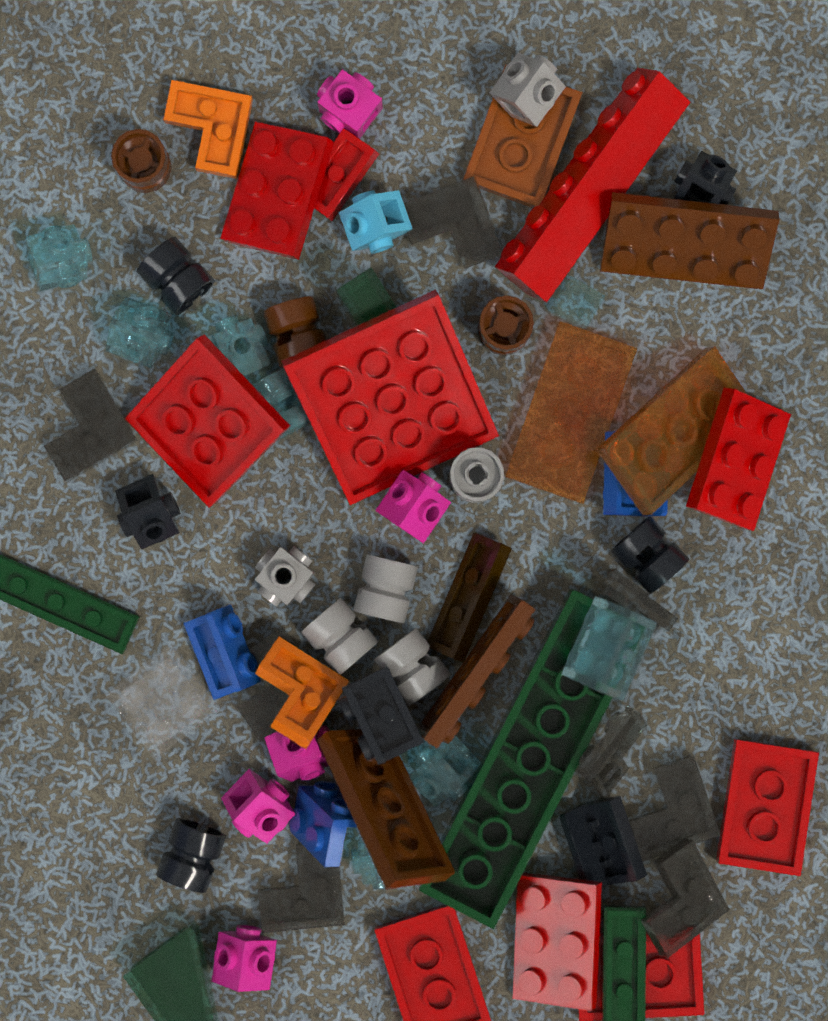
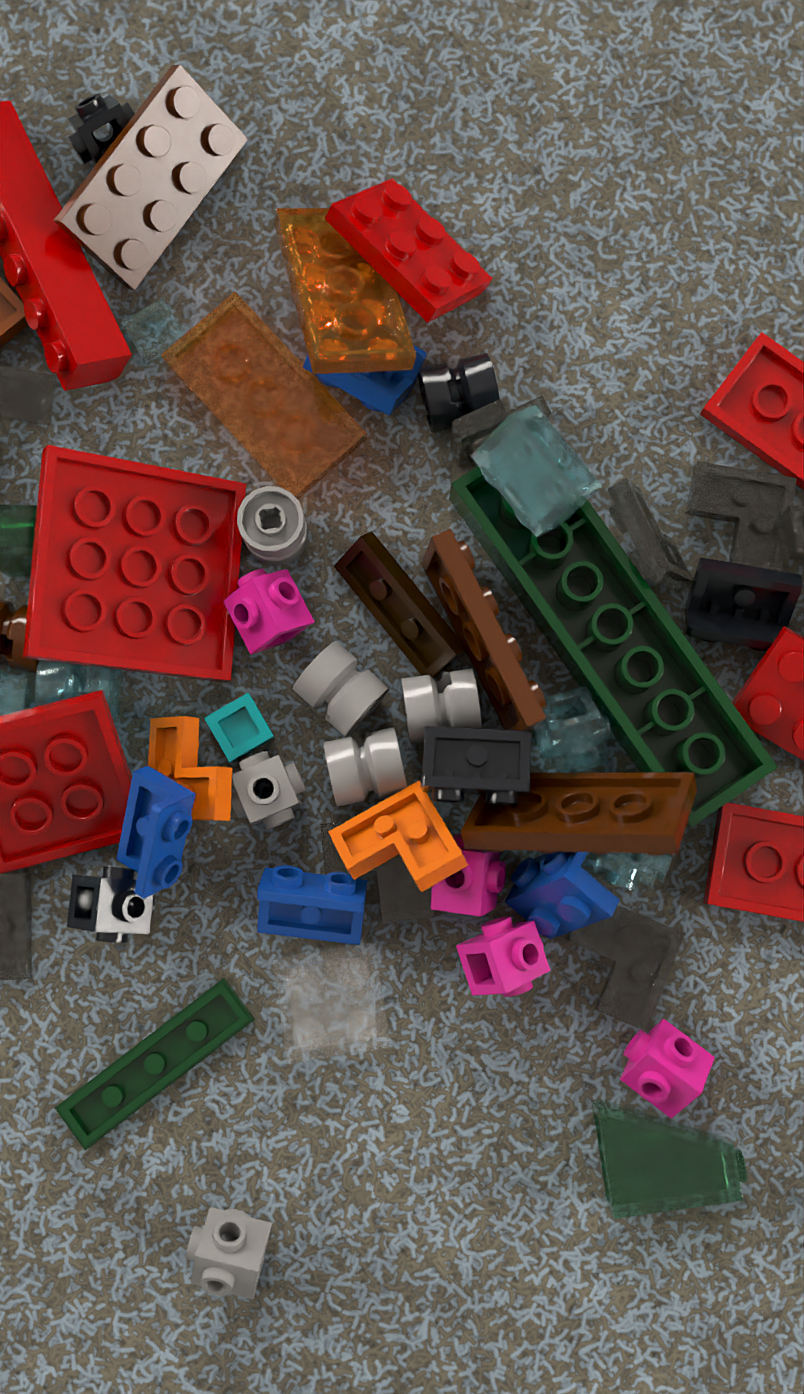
camera: 60 degrees left, 5 degrees down
(191, 855) = (522, 1069): black wheel -> none
(214, 516) = (155, 830): none -> blue bracket
(254, 508) = (175, 755): none -> orange plate
(319, 530) = (239, 728): none -> teal plate
(505, 325) = (123, 403): reddish brown wheel -> none

